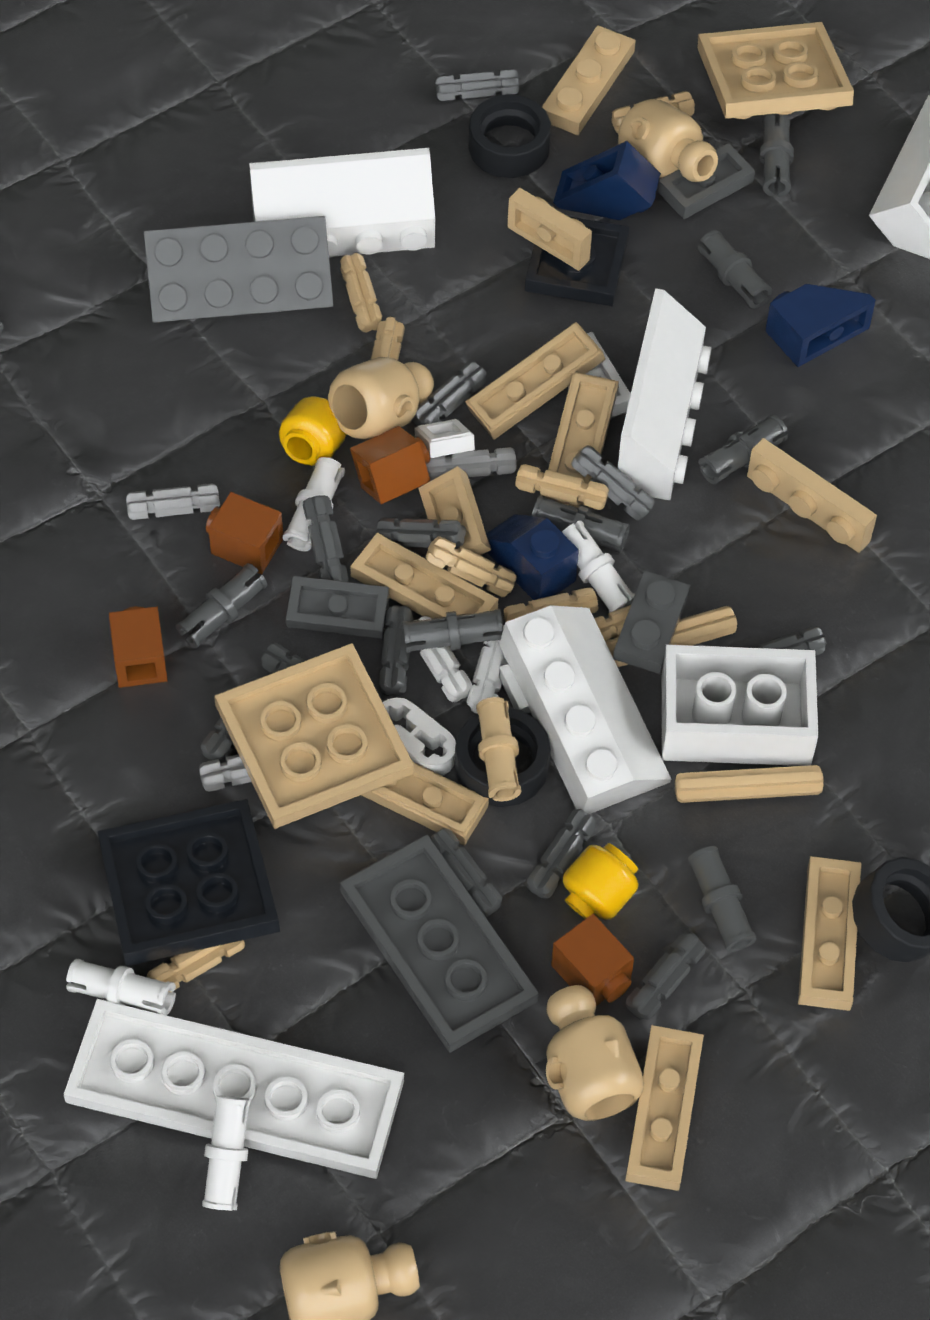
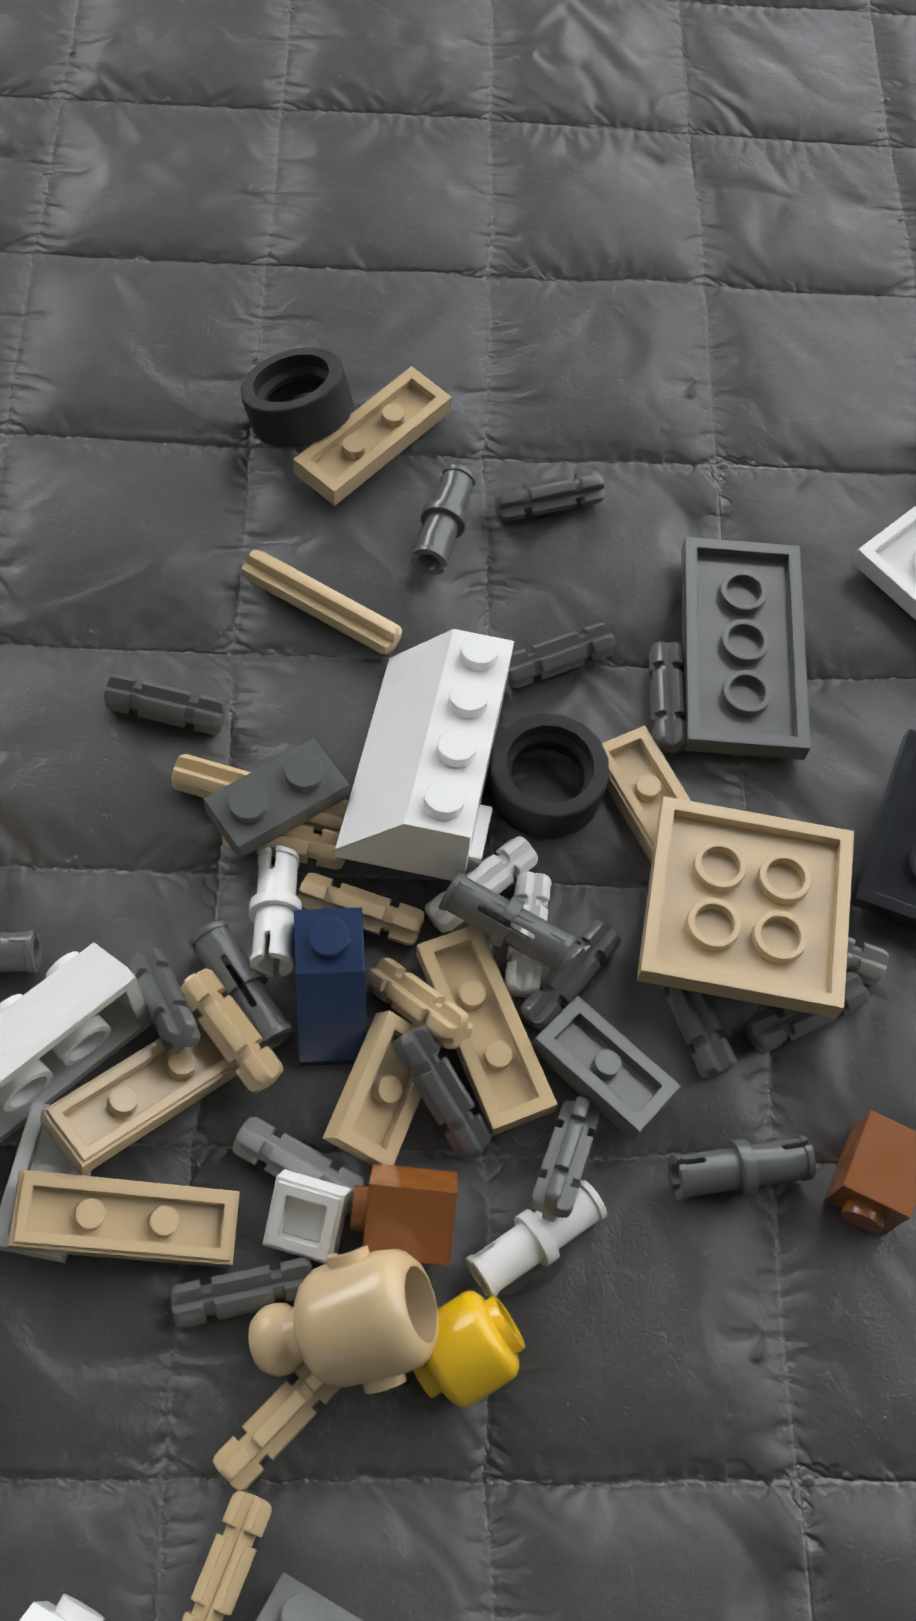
camera: 150 degrees left, 5 degrees up
(172, 501) = (713, 1378): light grey axle -> none
(245, 532) = (655, 1249): dark orange brick -> none
(421, 732) = (604, 867): white beam -> none
(498, 749) = (565, 748): tan pin -> none
(590, 1058) = (680, 458): tan piece -> none
(594, 959) = (612, 536): dark orange brick -> none
(600, 881) = (548, 593): yellow head -> none
(665, 1108) = (637, 401): tan plate -> none
(739, 705) = (271, 650): white brick -> none

